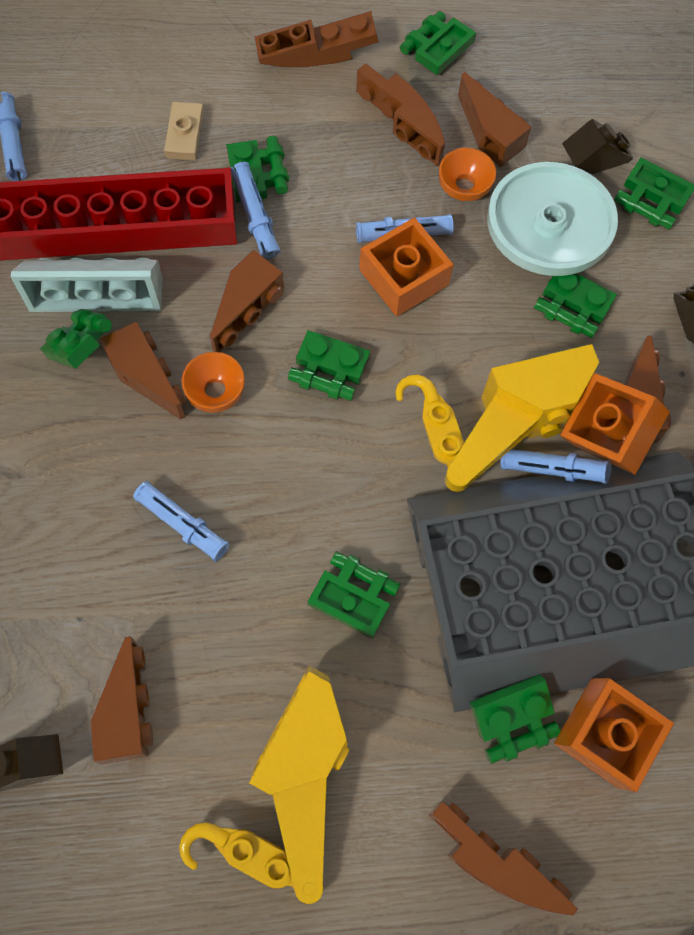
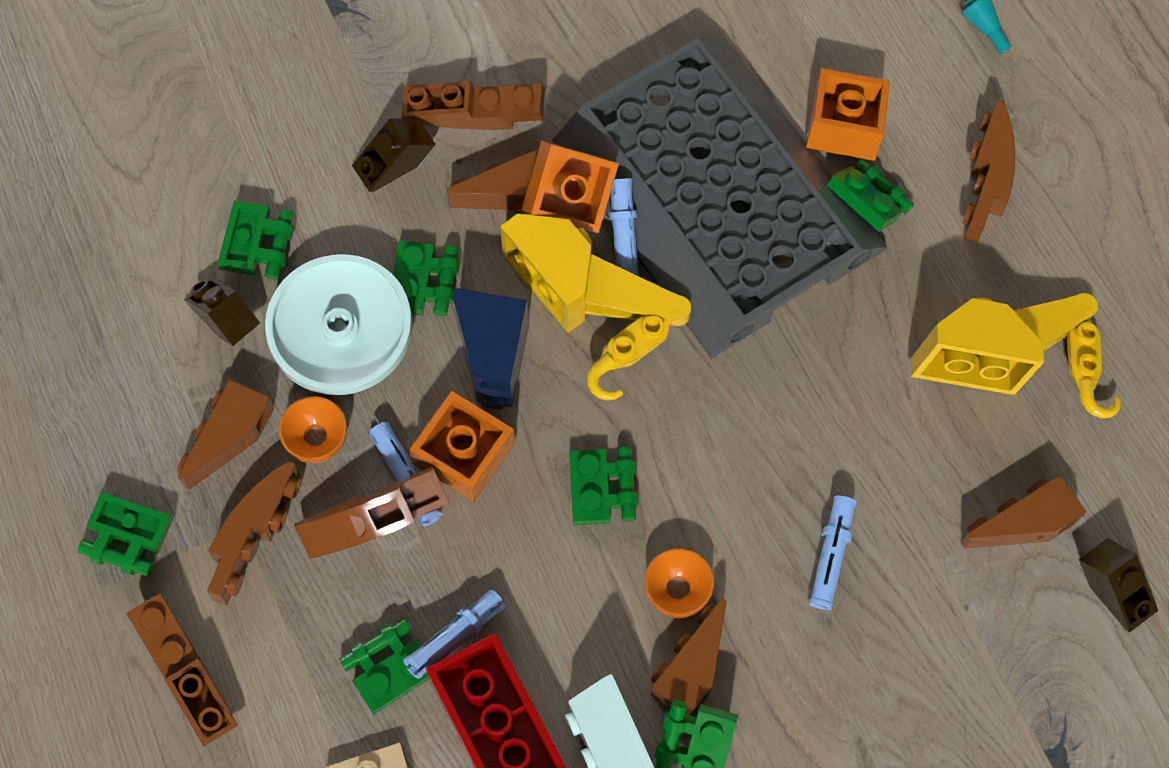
camera: 110 degrees left, 0 degrees up
(247, 293) = (560, 600): dark orange slope -> none
(349, 603) = (837, 368): green plate -> none
(372, 188) = (371, 515): none -> dark orange slope
(484, 313) = (493, 342): none -> dark blue slope

